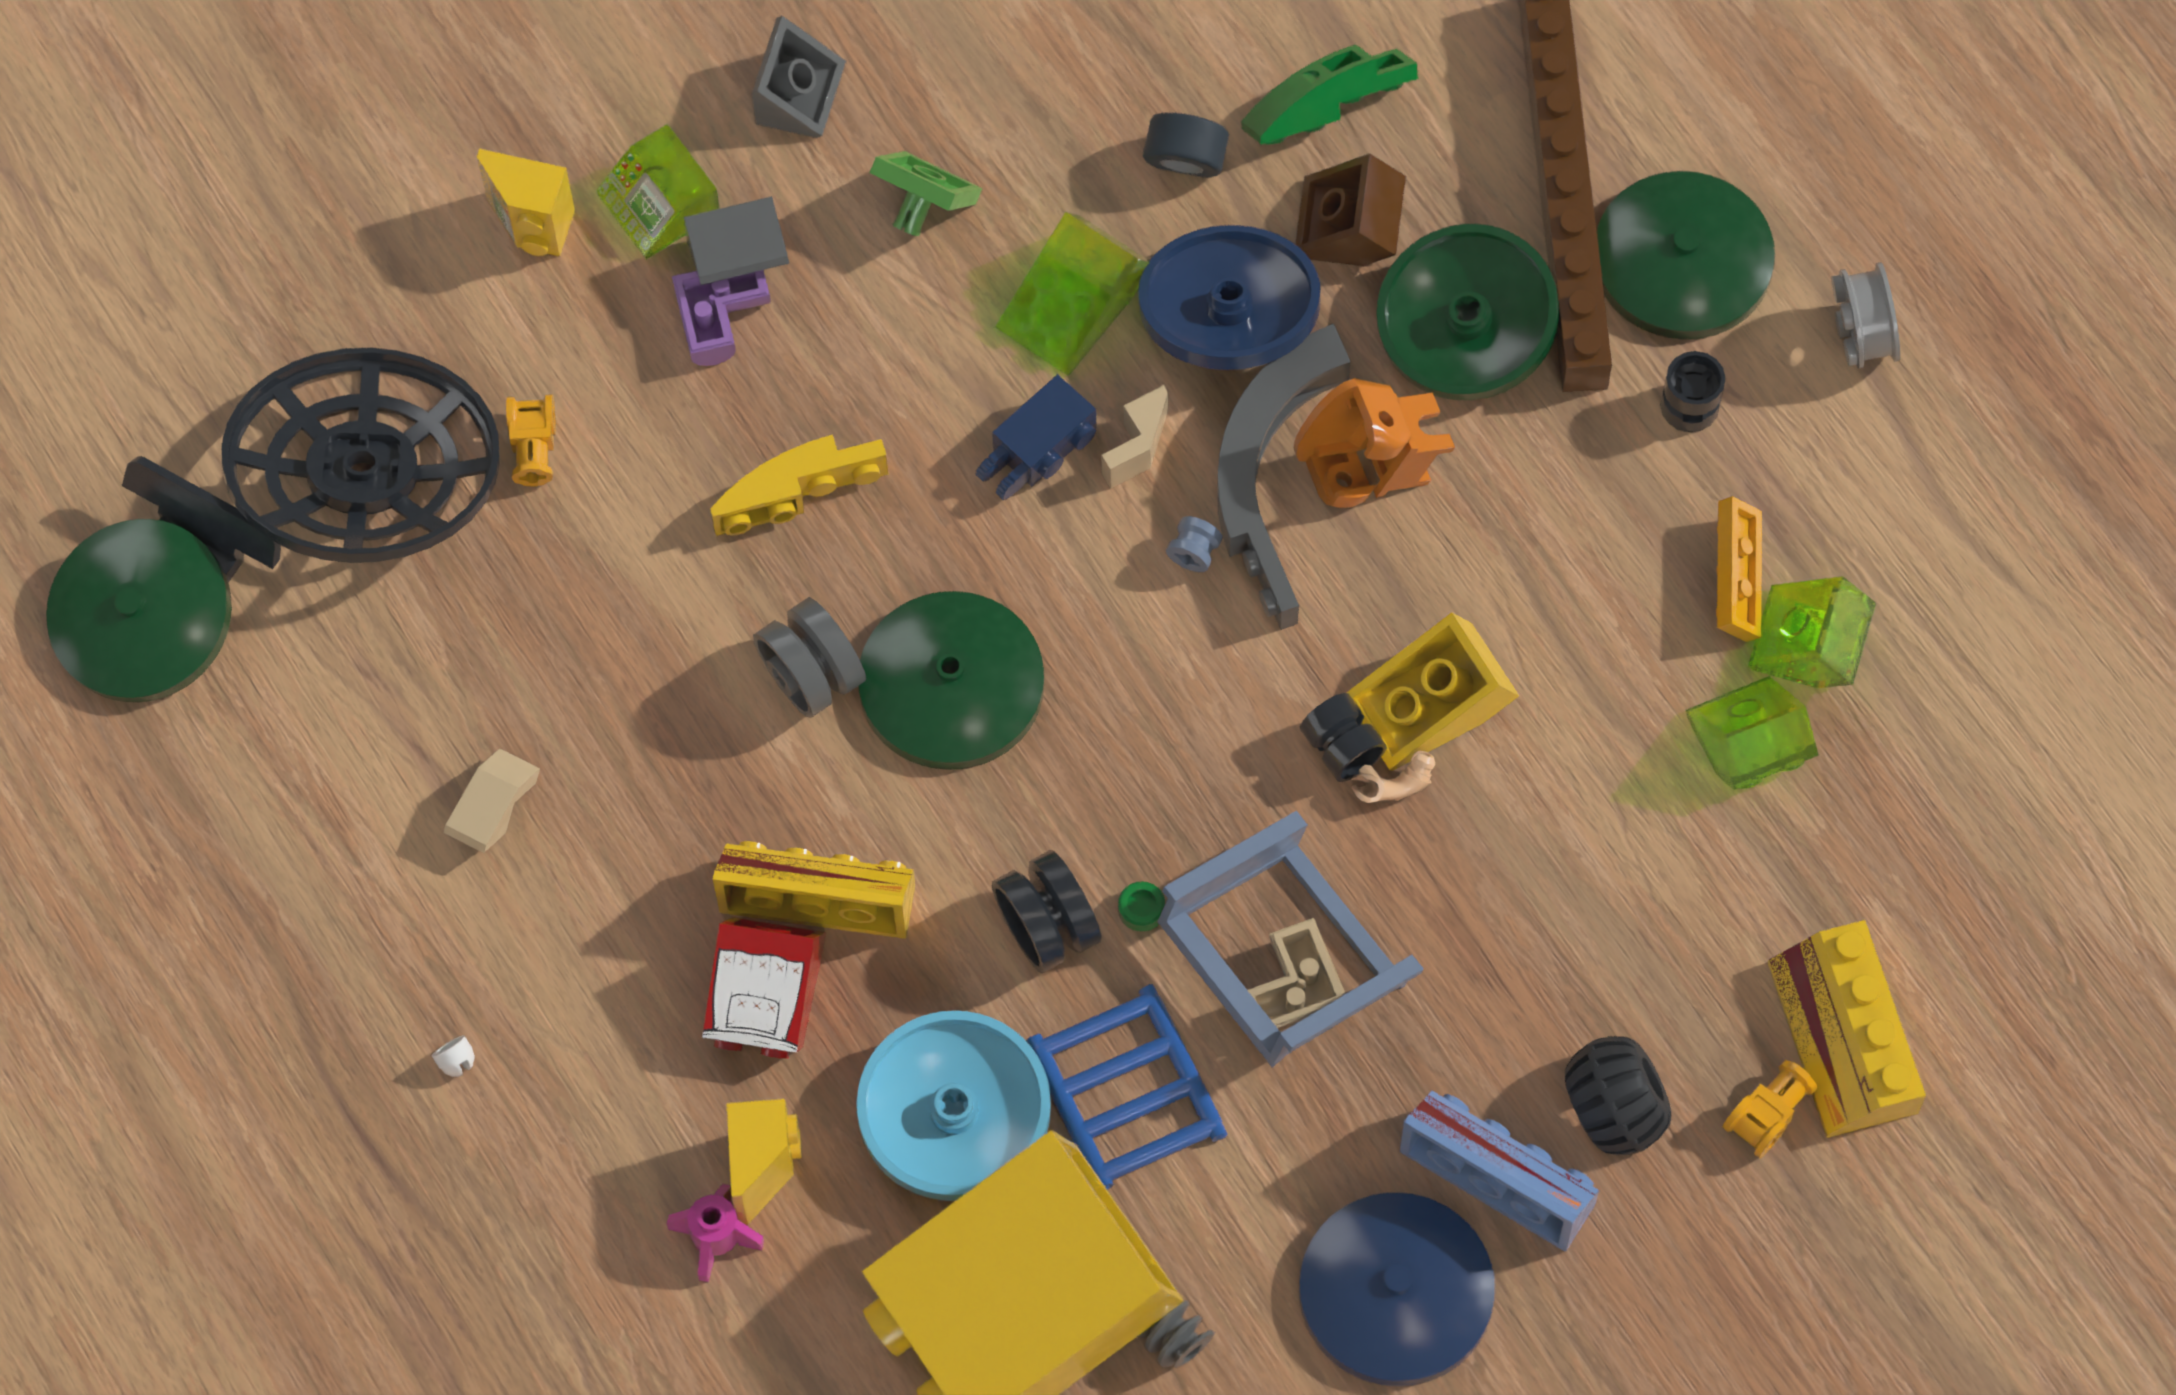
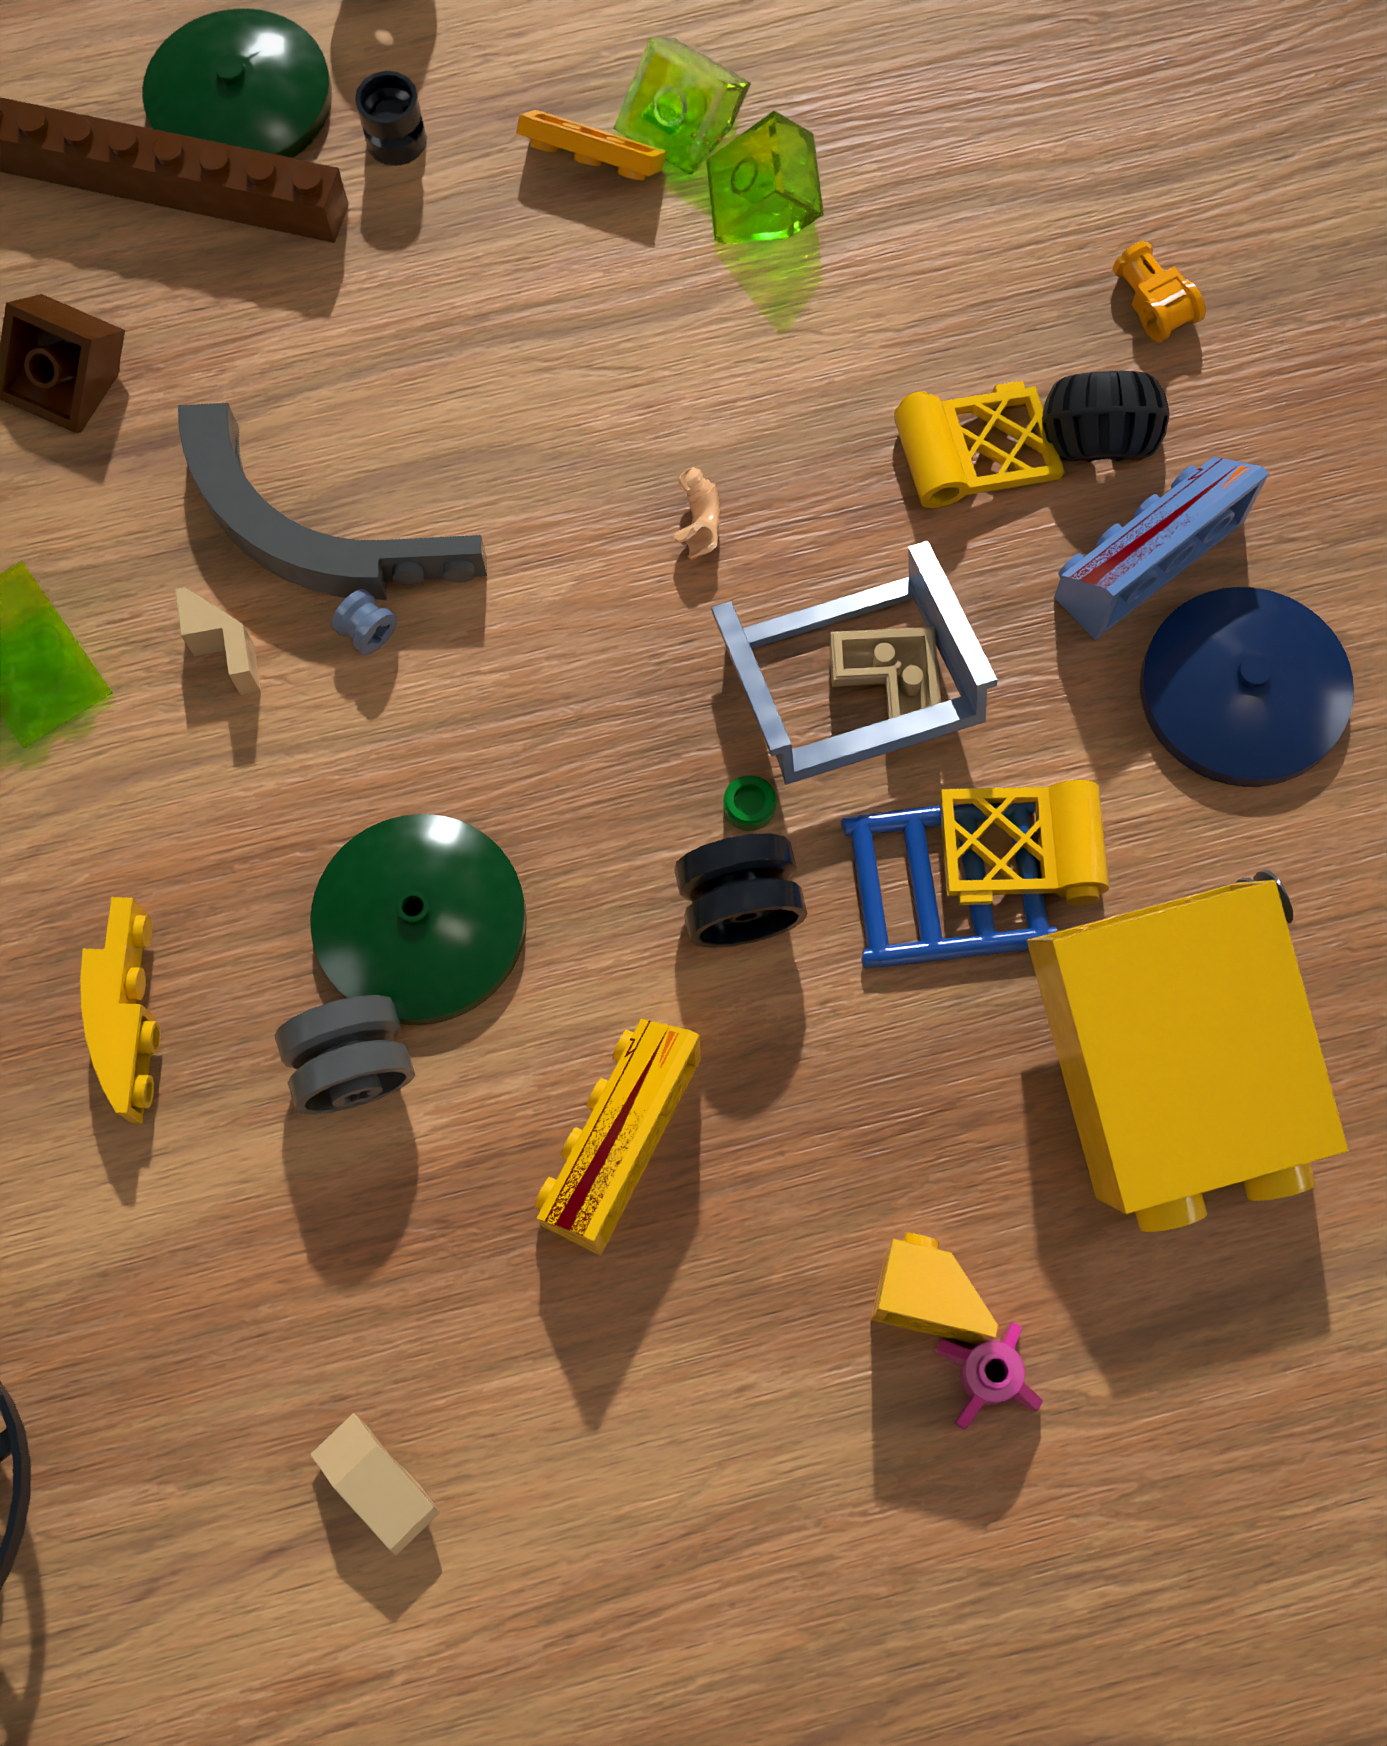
camera: 70 degrees left, 5 degrees up
(452, 1054) = (679, 1625): white hinge -> none
(762, 986) = (716, 1228): slope -> none
(951, 1102) = (929, 1061): medium azure dish -> none
(1039, 437) = (173, 735): dark blue hinge -> none
(1191, 1169) = (1068, 841): none -> yellow piece
(1229, 297) = (101, 497): dark blue dish -> none
(1338, 731) = (639, 543): black wheel -> none
(1370, 417) = (327, 389): orange piece -> none
(1433, 691) = (618, 452): yellow slope -> none
(1468, 312) = (218, 282): dark green dish -> none
(1533, 959) = (939, 449): none -> yellow piece
(1847, 1029) = (1098, 199): yellow slope -> none

